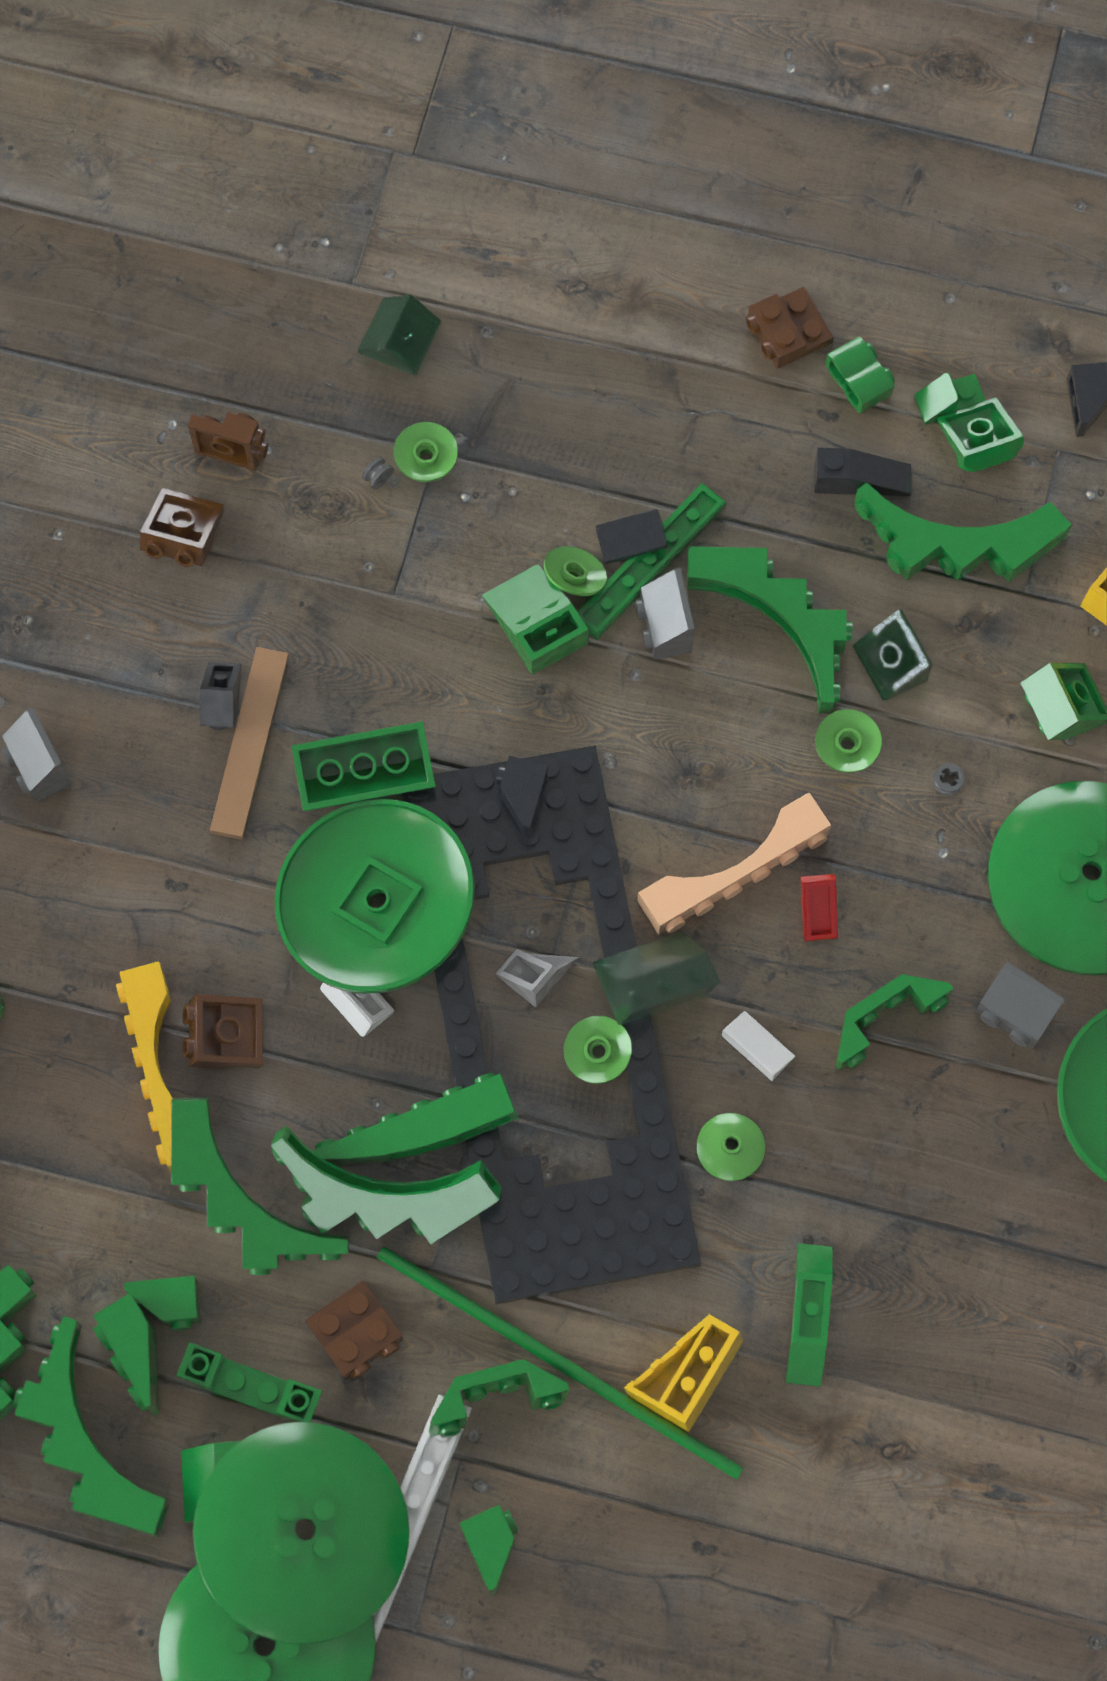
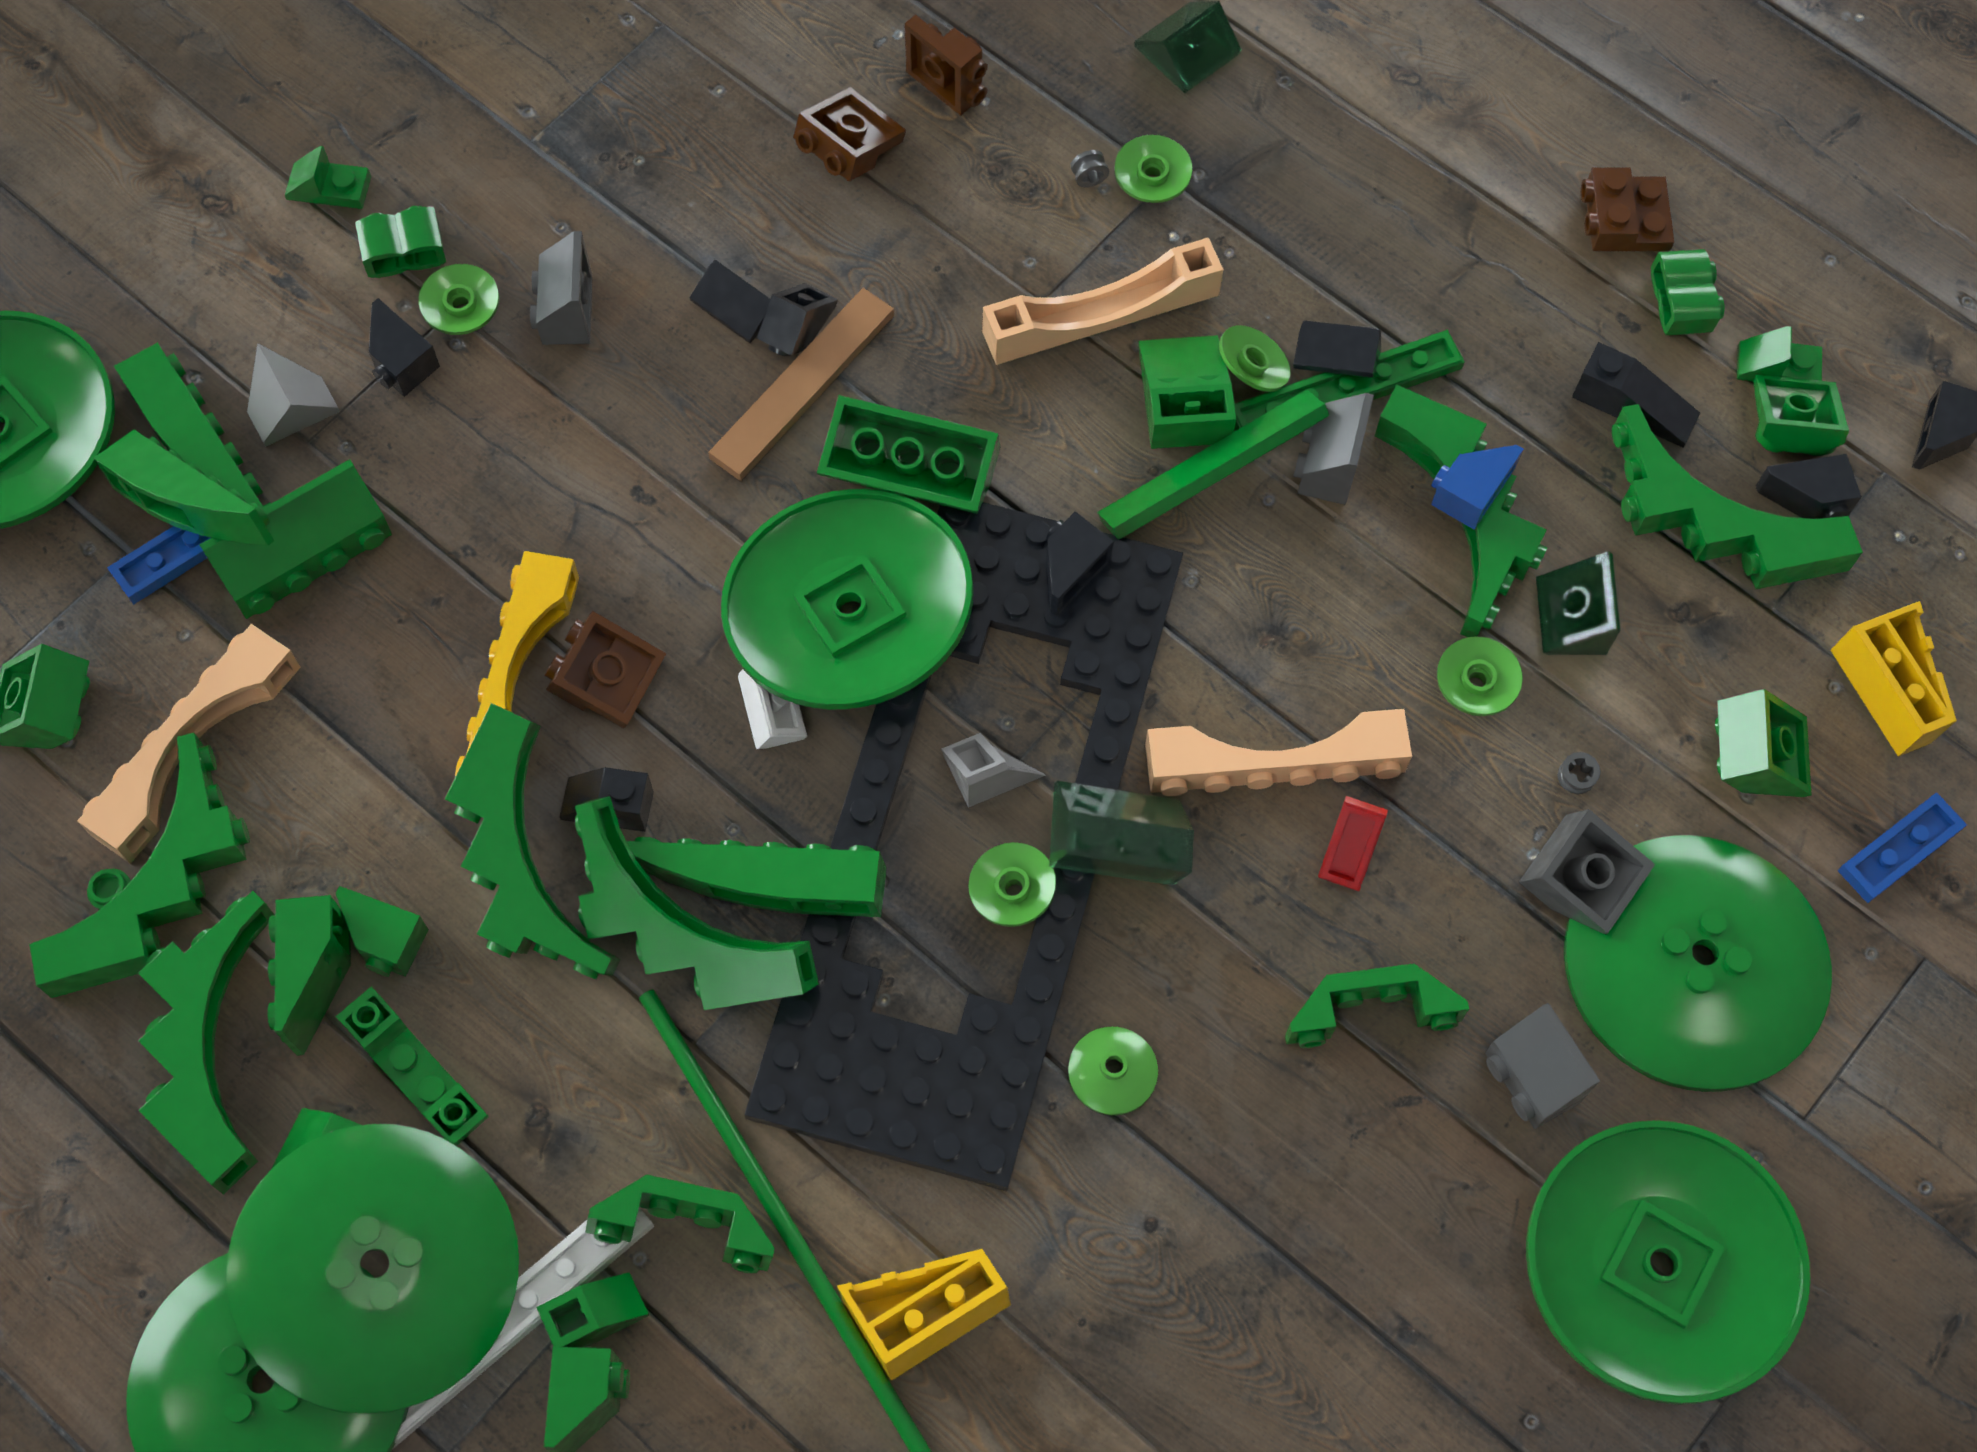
camera: 25 degrees right, 5 degrees down
(164, 703) = (731, 300): none -> black slope
(261, 1127) = (629, 792): none -> black slope
(355, 1331) = (568, 1070): reddish brown plate -> none
(406, 614) = (1040, 323): none -> light nougat arch
(465, 1488) = (592, 1311): none -> green slope
(585, 669) = (1213, 464): none -> green tile
(757, 1045) = (1203, 968): white slope -> none
(781, 601) = (1474, 482): none -> blue slope
(810, 1315) = (1104, 1312): green slope -> none
(987, 850) = (1587, 871): none -> dark grey slope
(1016, 488) = (1812, 487): none -> black slope

